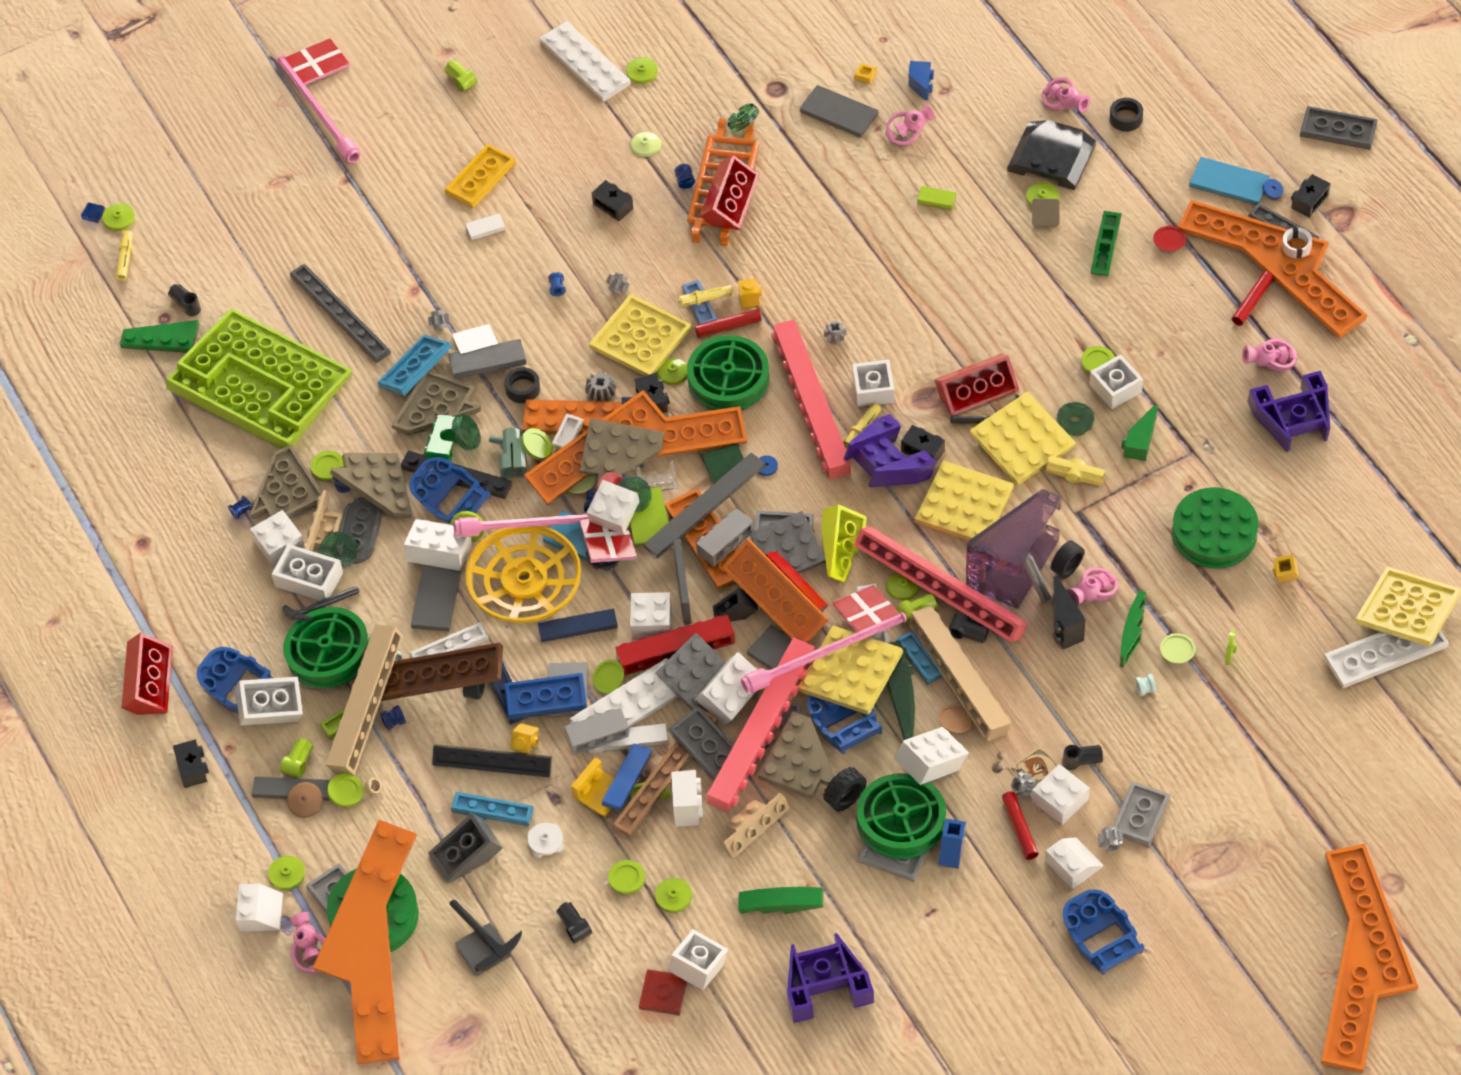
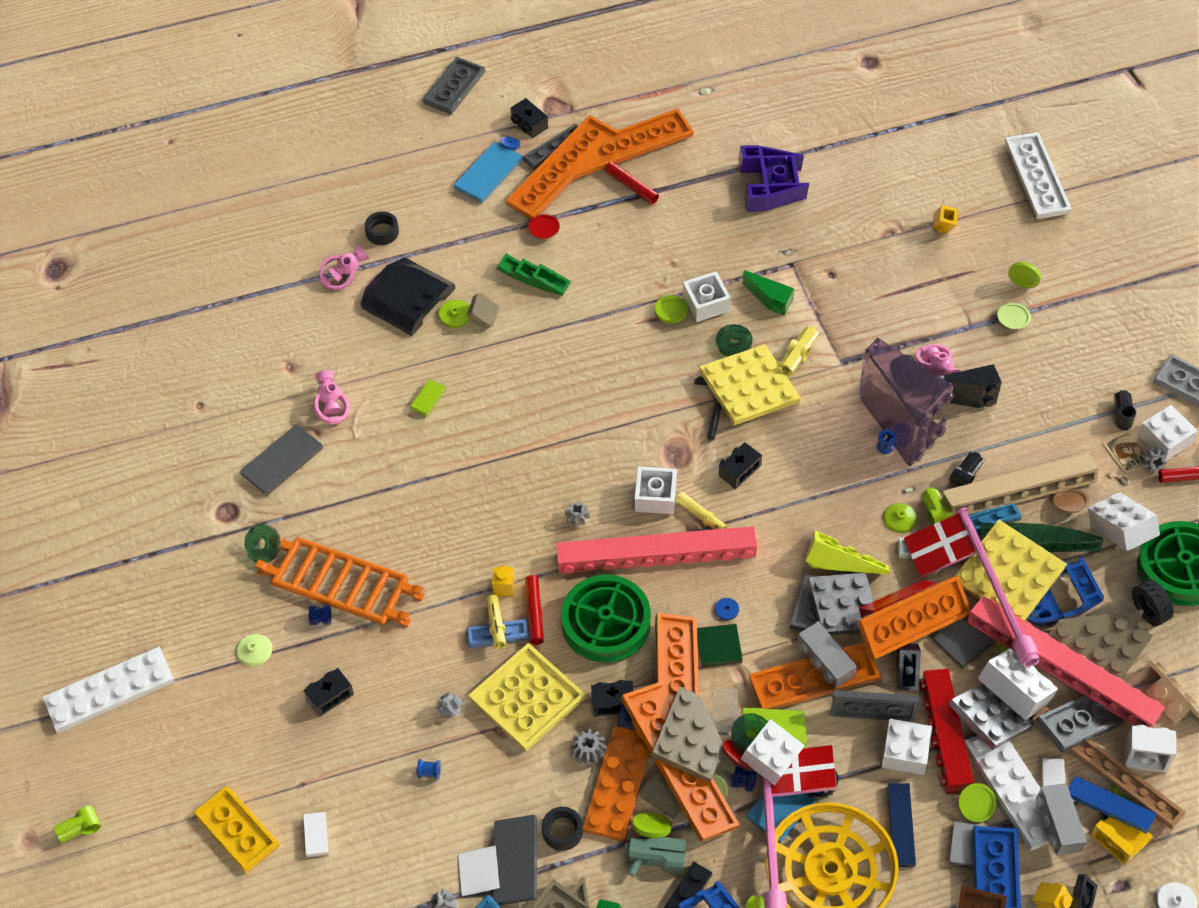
camera: 80 degrees left, 0 degrees up
(466, 432) = (621, 896): clear green tile -> none
(567, 431) = (646, 789): white tile -> none
(641, 70) = (146, 634): lime piece -> none
(673, 371) = (581, 673): lime piece -> none
(704, 505) = (777, 670): dark grey tile -> none
(729, 194) = (369, 572): red slope -> none
(865, 73) = (239, 428): yellow tile -> none
(883, 461) = (753, 499): dark purple wedge -> none
(919, 78) = (270, 379): blue slope -> none
(941, 584) = (913, 481): coral brick -> none
(963, 501) = (813, 447): light yellow plate -> none
(977, 384) = (675, 407): red slope -> none
(1132, 631) = (992, 346): green slope -> none
(1145, 685) = (1052, 346): light aqua wheel -> none
(1215, 527) = (888, 260): green wheel -> none
(1266, 355) = (703, 183): bright pink piece -> none
(1297, 233) = (587, 125): white piece -> none
(1408, 606) = (1000, 147): light yellow plate -> none

